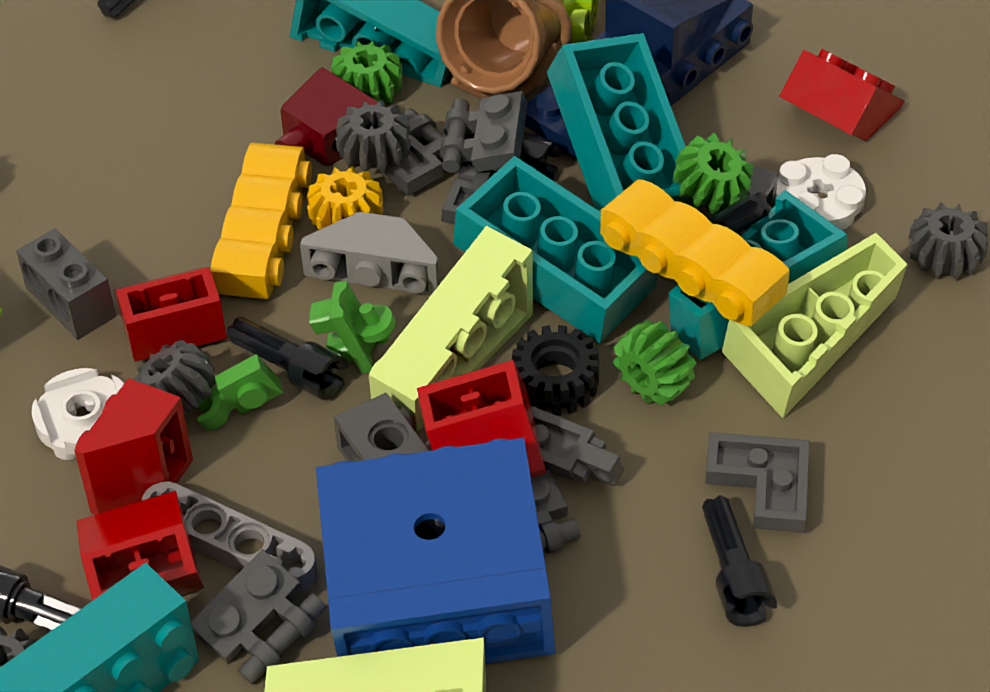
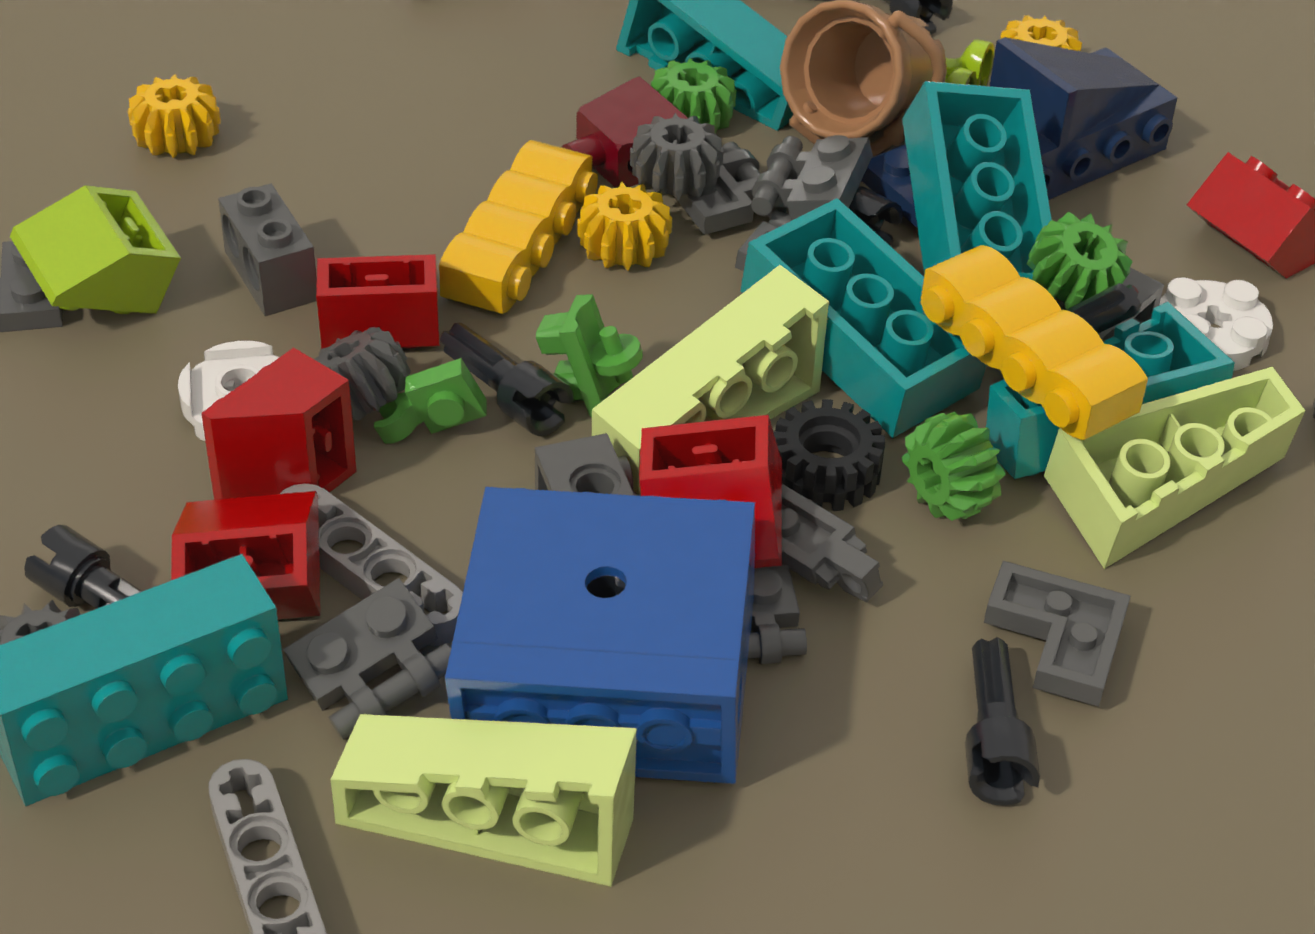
camera: 10 degrees right, 5 degrees down
(371, 253) = (637, 283): light grey slope -> none

